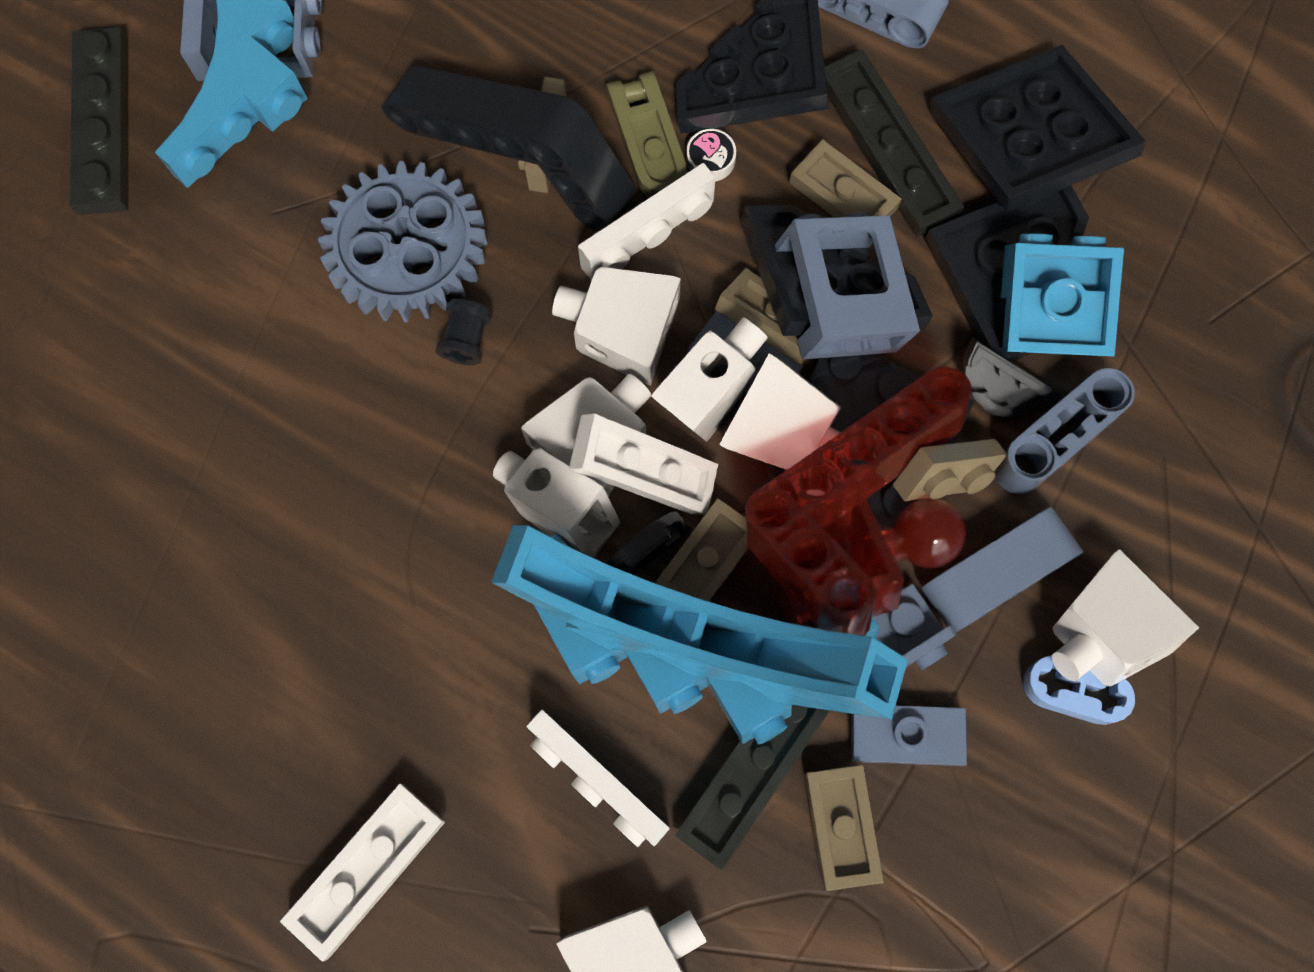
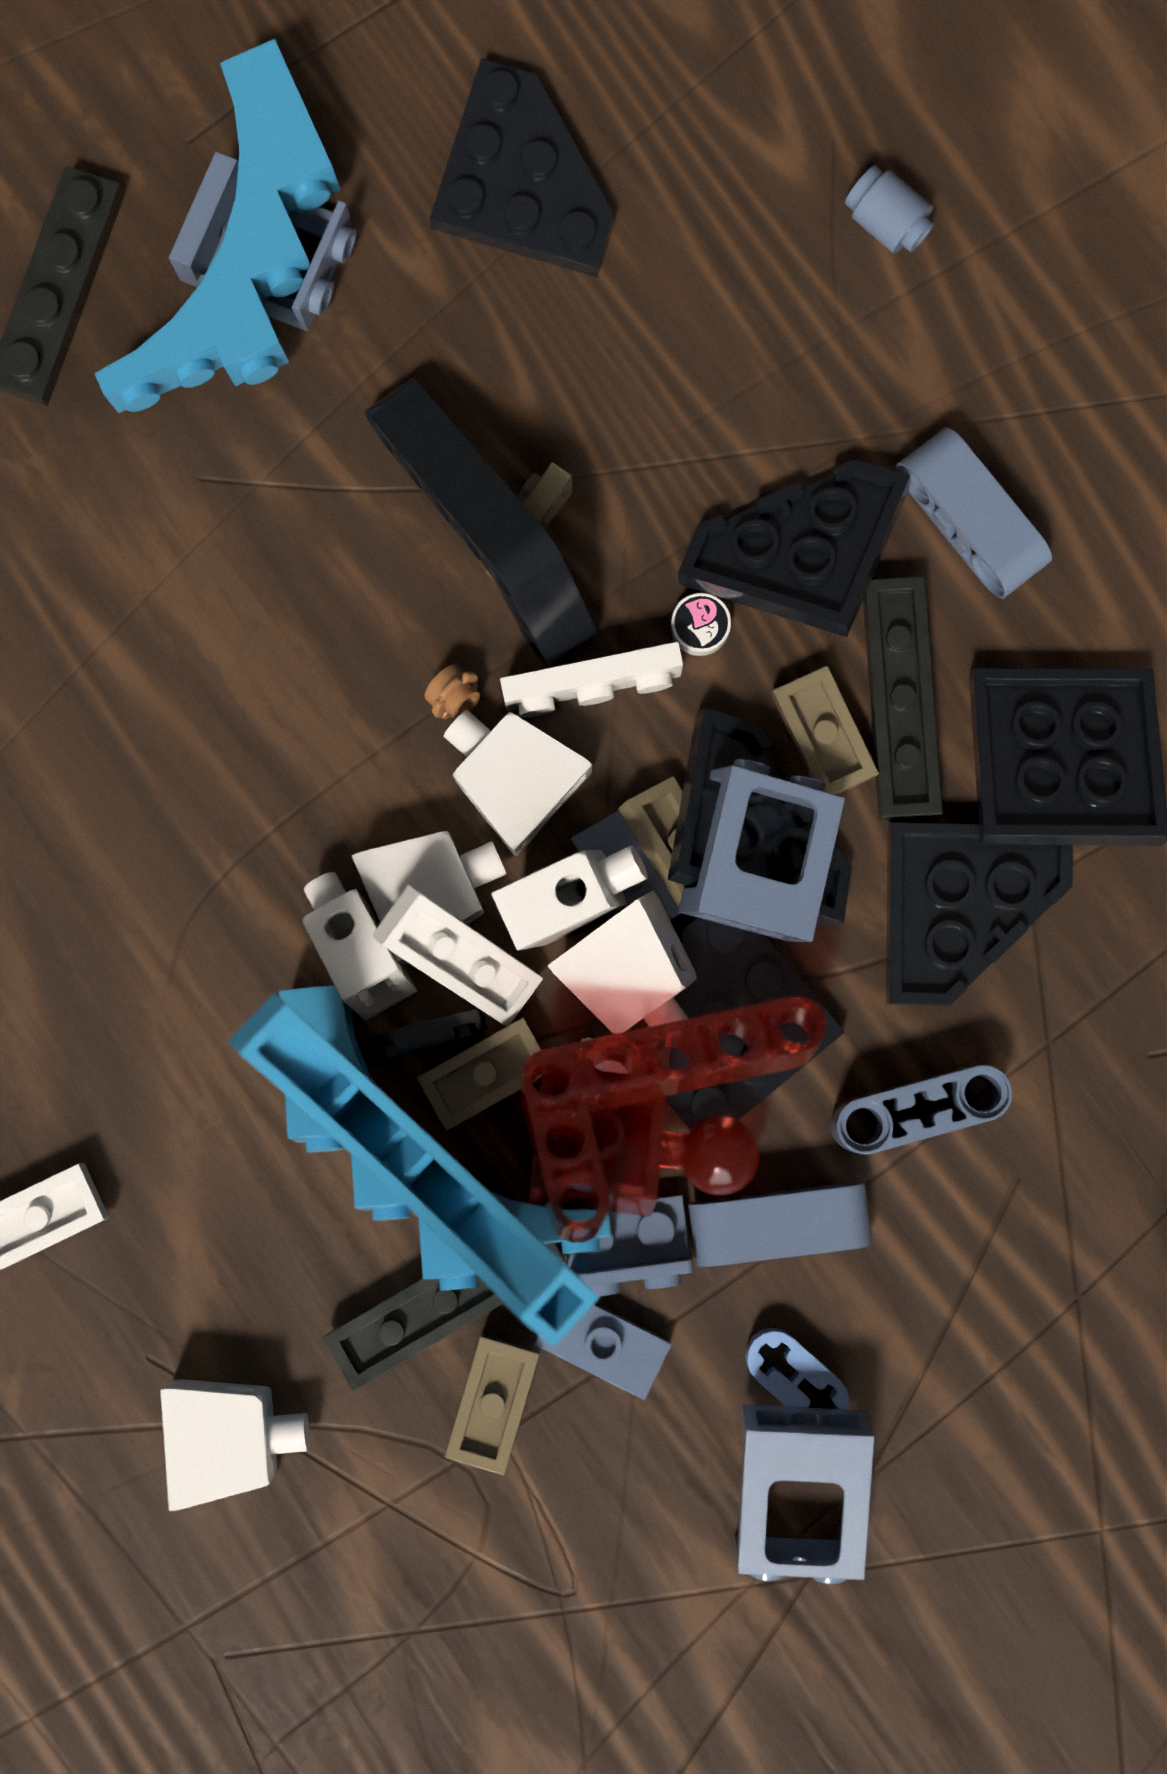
camera: 25 degrees right, 10 degrees up
(403, 241) = (290, 622): sand blue gear -> none
(464, 332) = (342, 715): black bush -> none
(543, 279) = (452, 692): none -> medium nougat plate
(595, 781) = (271, 1249): white plate -> none
(647, 133) = (640, 572): olive plate -> none
(950, 470) = (762, 1100): dark tan plate -> none
(1003, 385) = (883, 1031): black tile -> none
(1061, 296) = (984, 968): dark azure plate -> none
(1118, 625) = (862, 1336): white torso -> none
(1124, 735) = (804, 1448): none -> window

